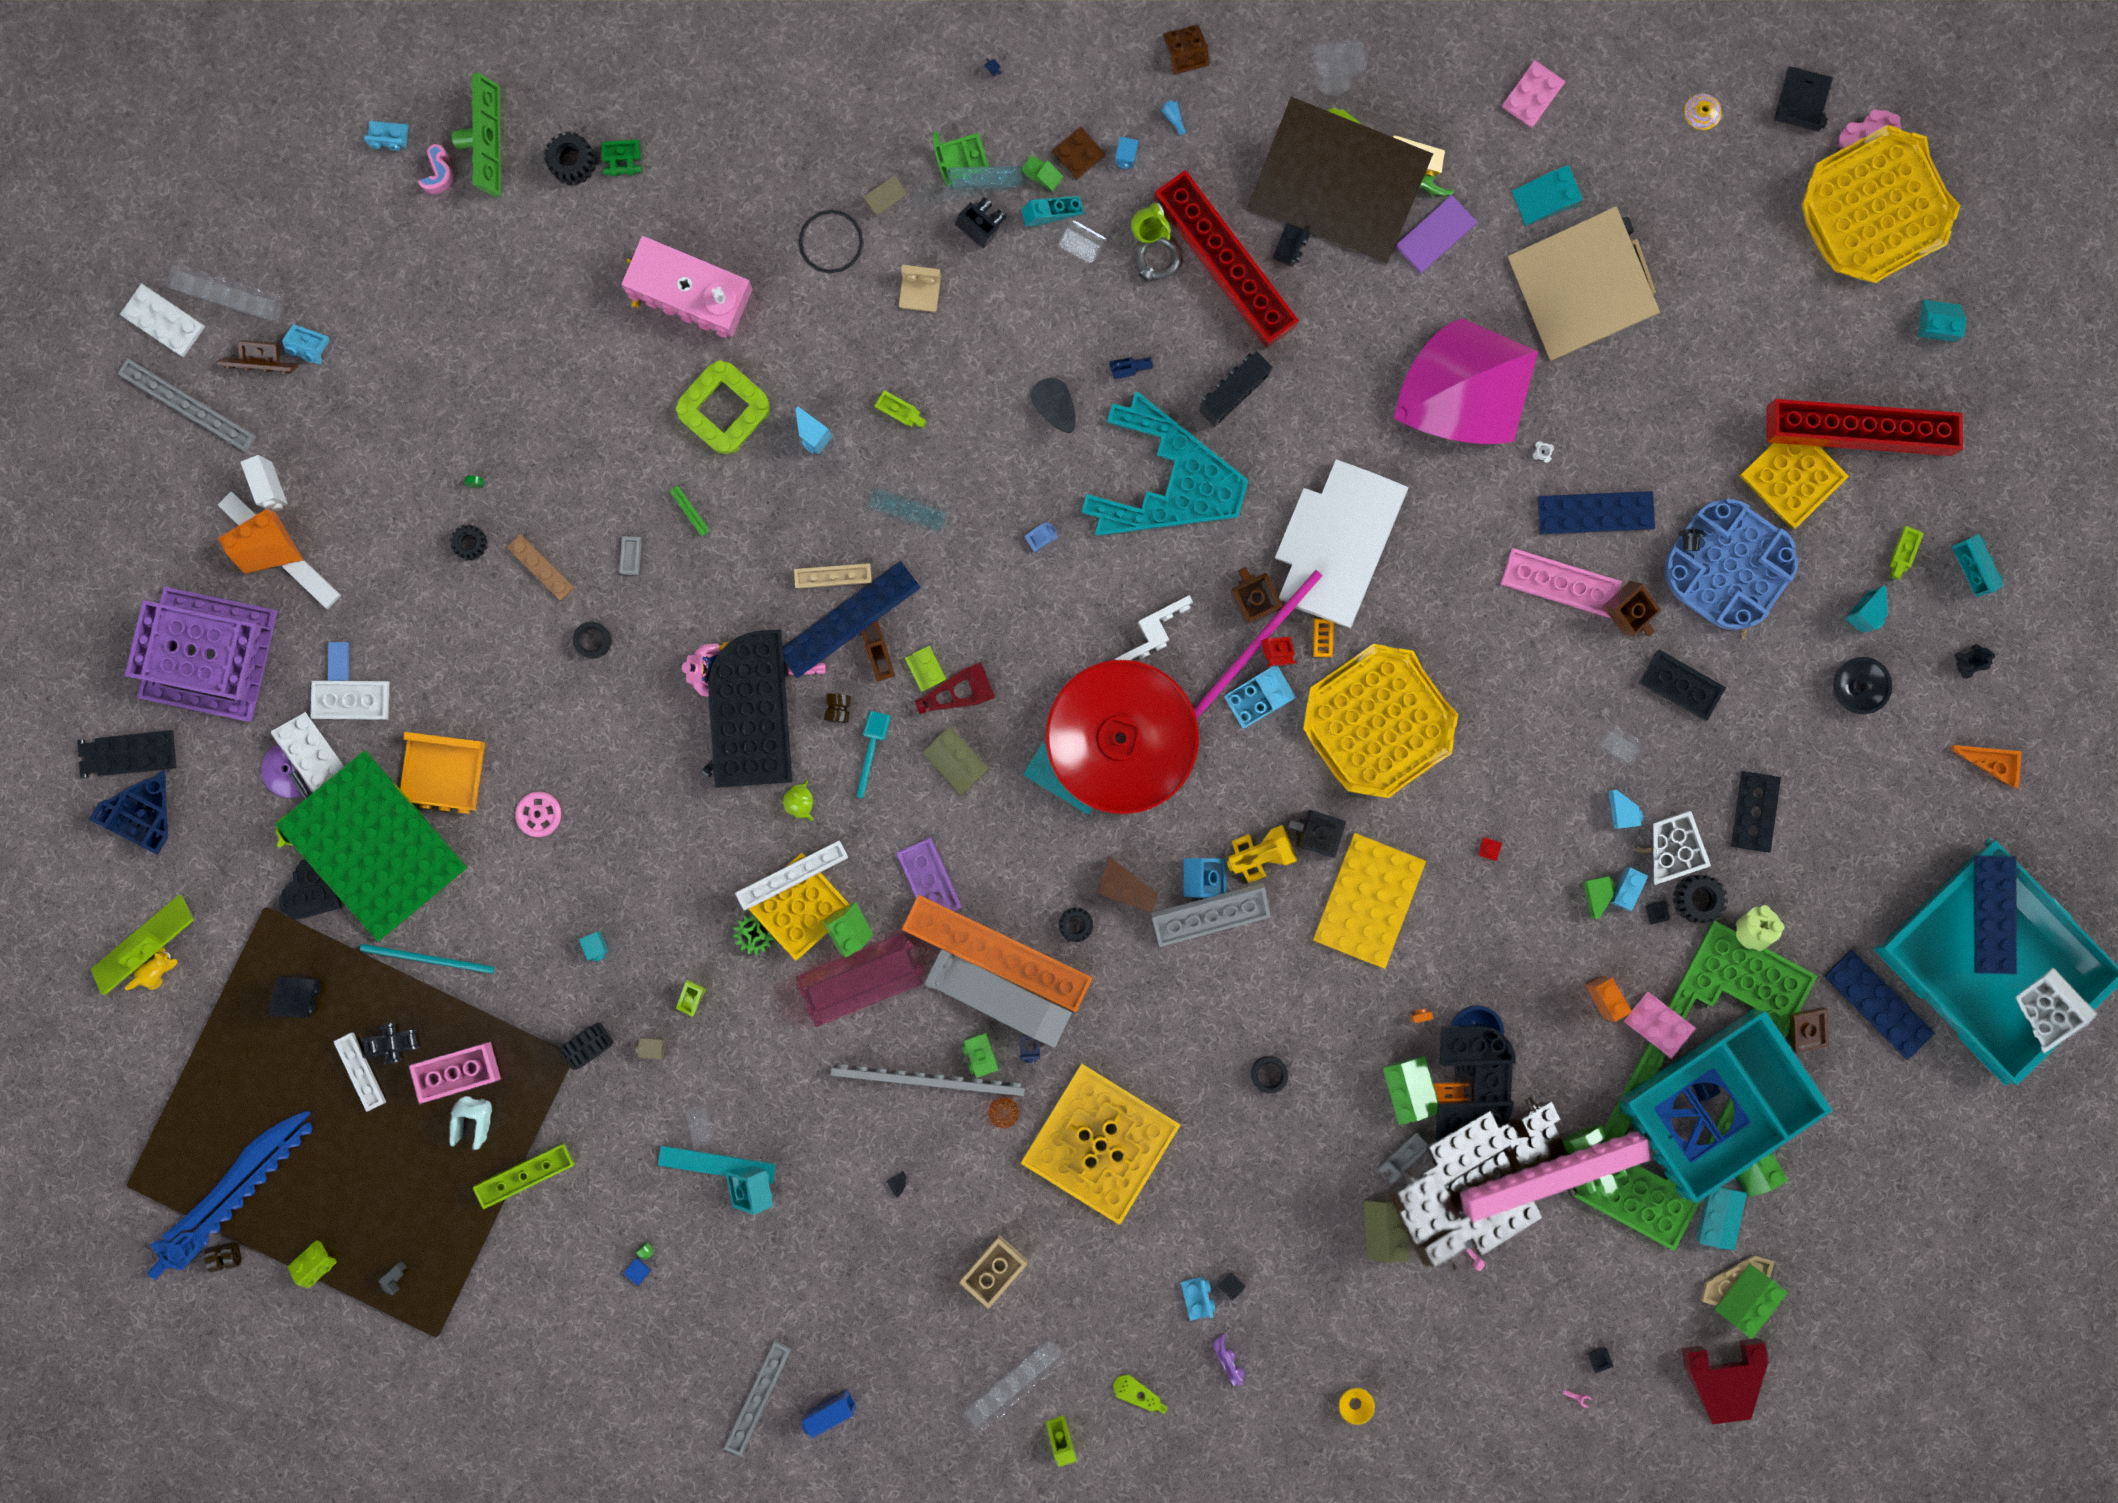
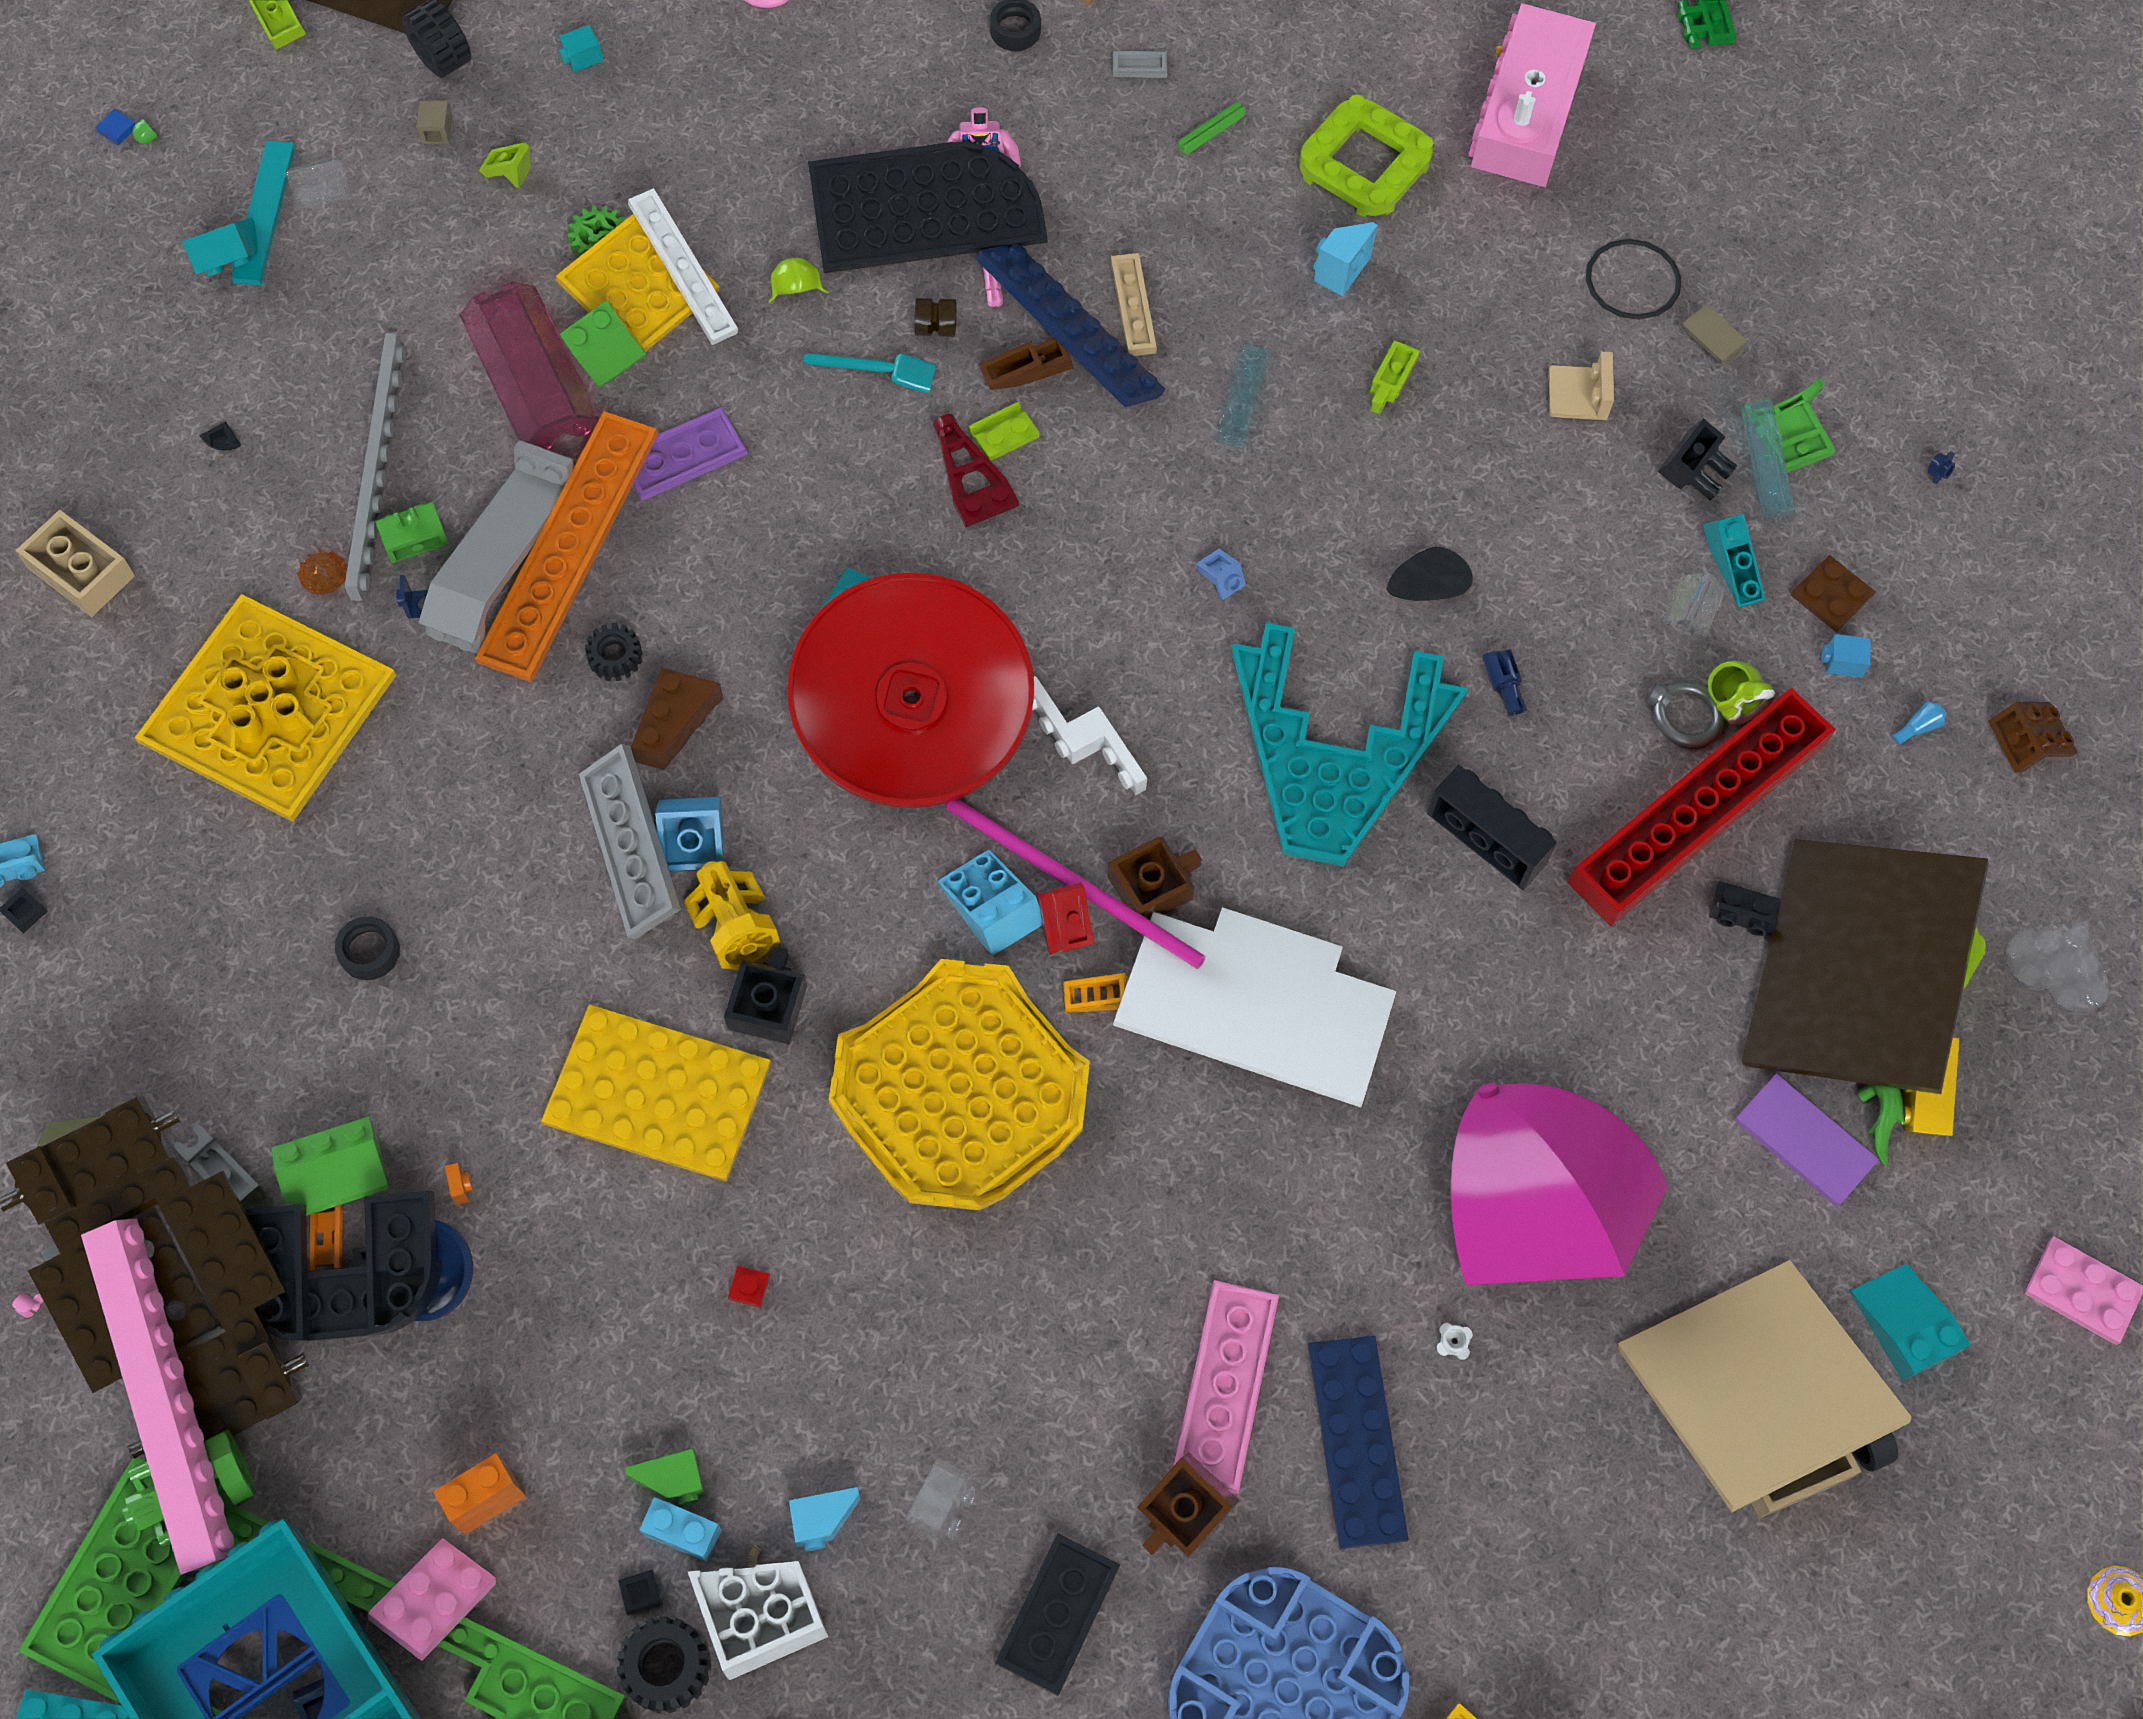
camera: 80 degrees right, 20 degrees down
(955, 760) = (867, 477): olive slope -> none
(1042, 173) = (1790, 544): bright green slope -> none
(1692, 538) = (1327, 1606): black piece -> none

